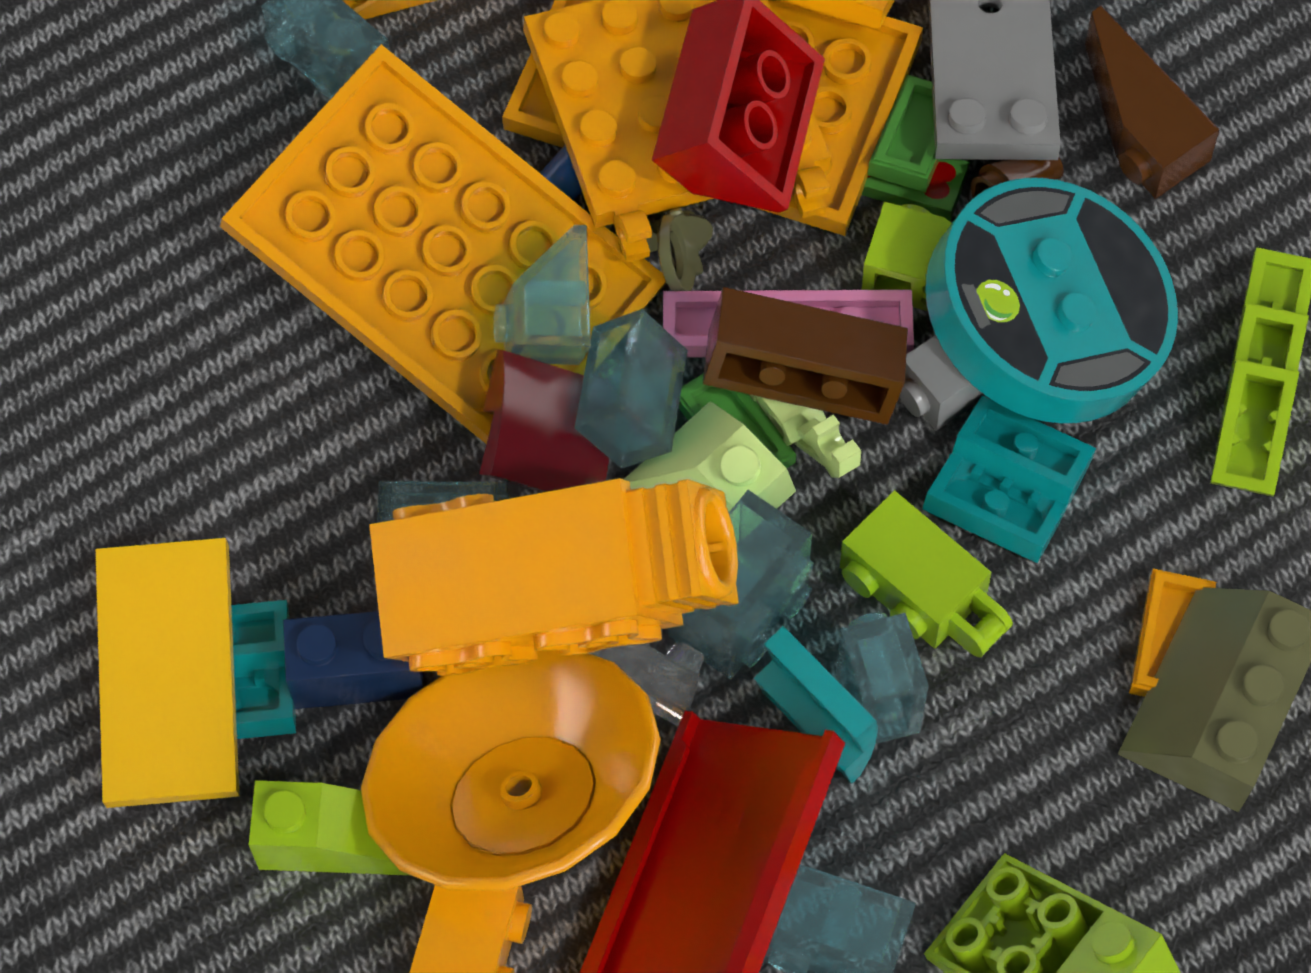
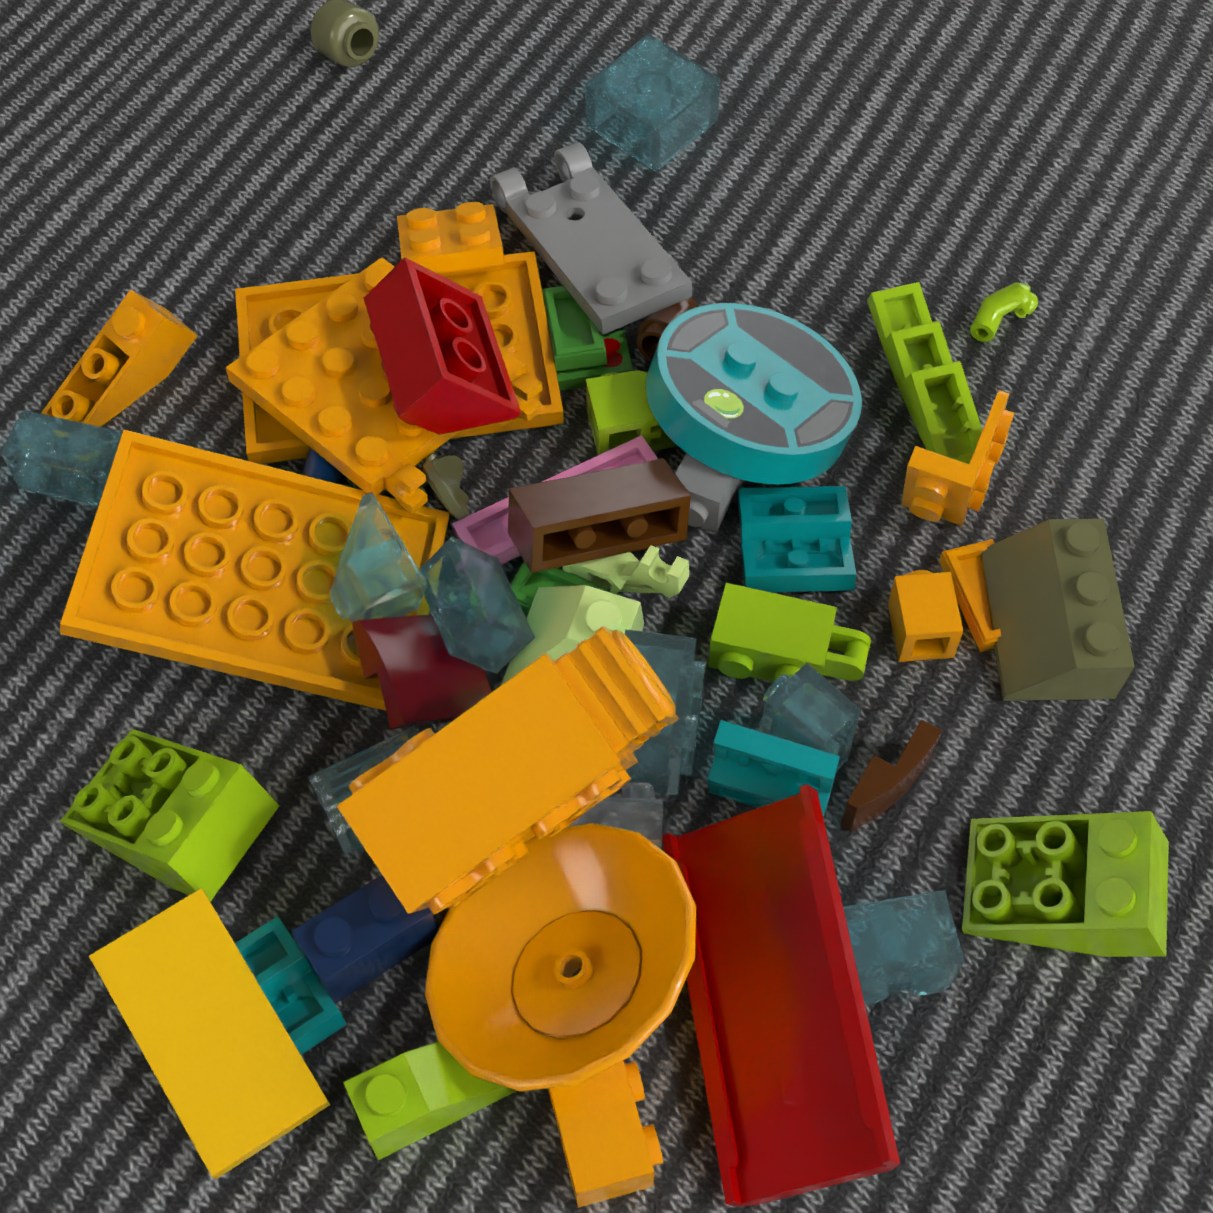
camera: 30 degrees left, 5 degrees down
(242, 450) = (172, 812): none -> lime slope
(928, 776) = (885, 783): none -> reddish brown slope
(1085, 625) = (924, 616): none -> light orange brick
(1150, 120) = (728, 239): reddish brown slope -> none
(1219, 512) = (948, 488): none -> light orange bracket

